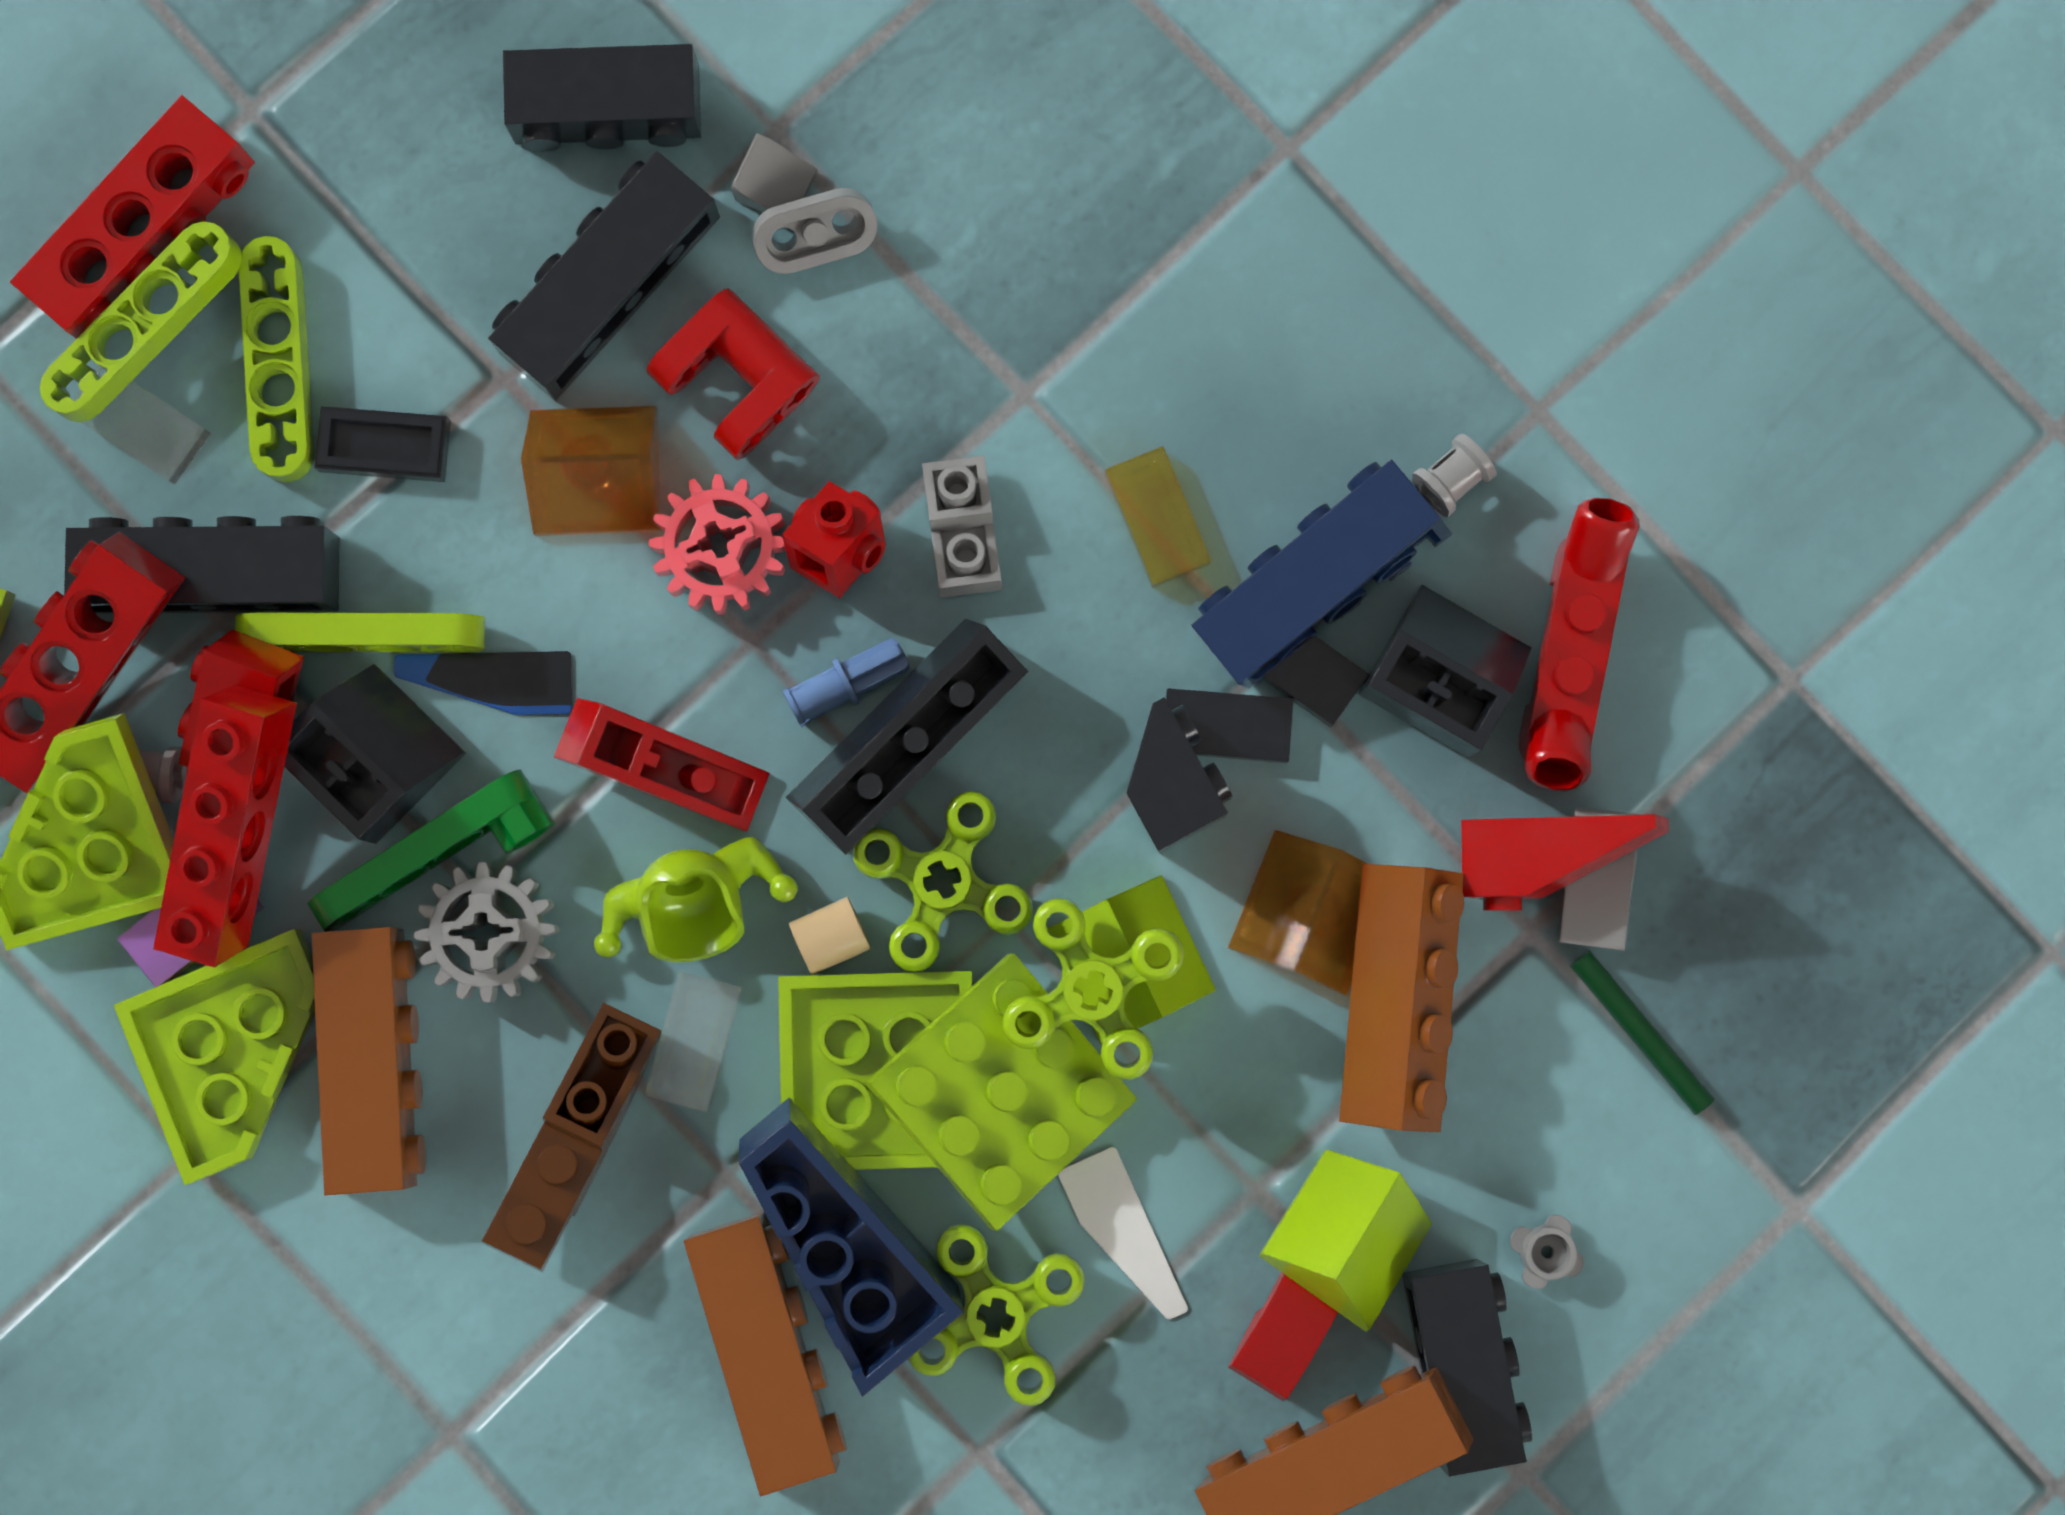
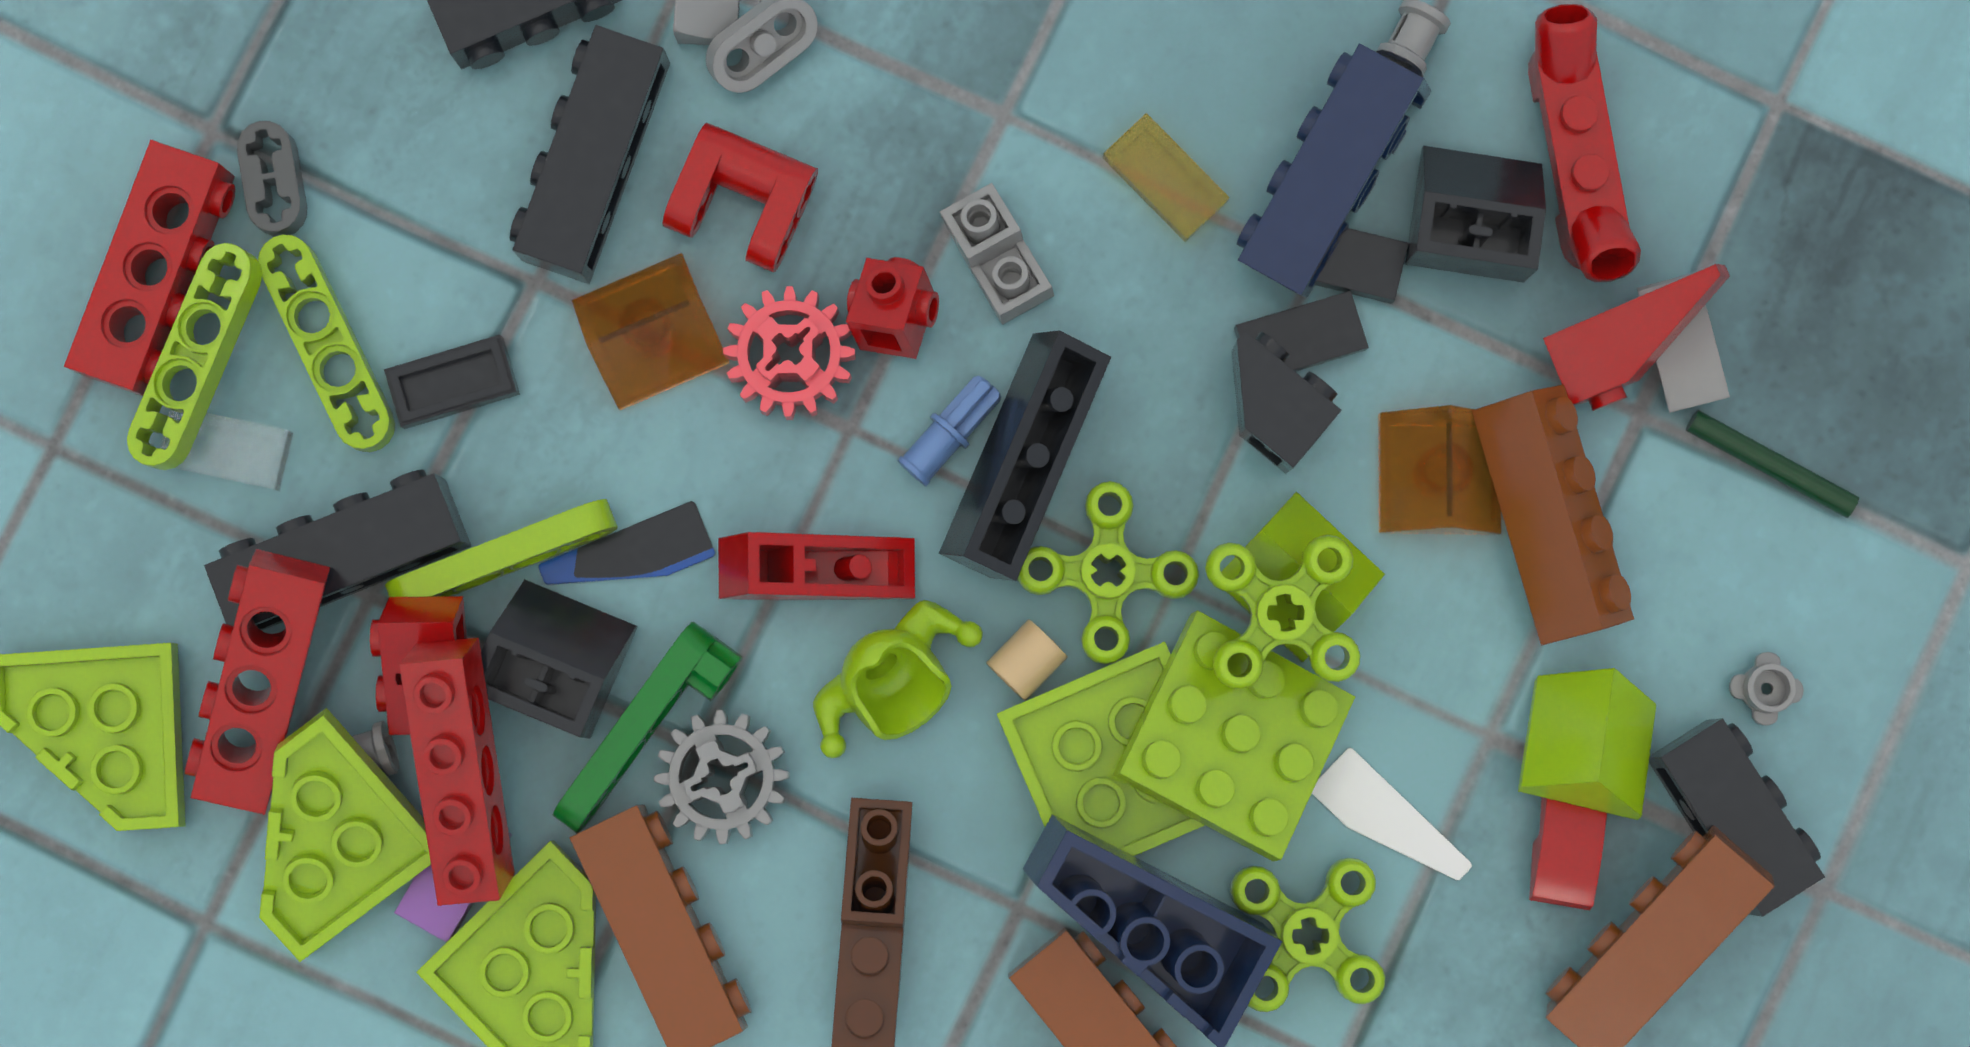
camera: 15 degrees left, 0 degrees up
(274, 176) = (258, 182): none -> dark grey beam
(693, 1041) = (942, 801): clear tile -> none

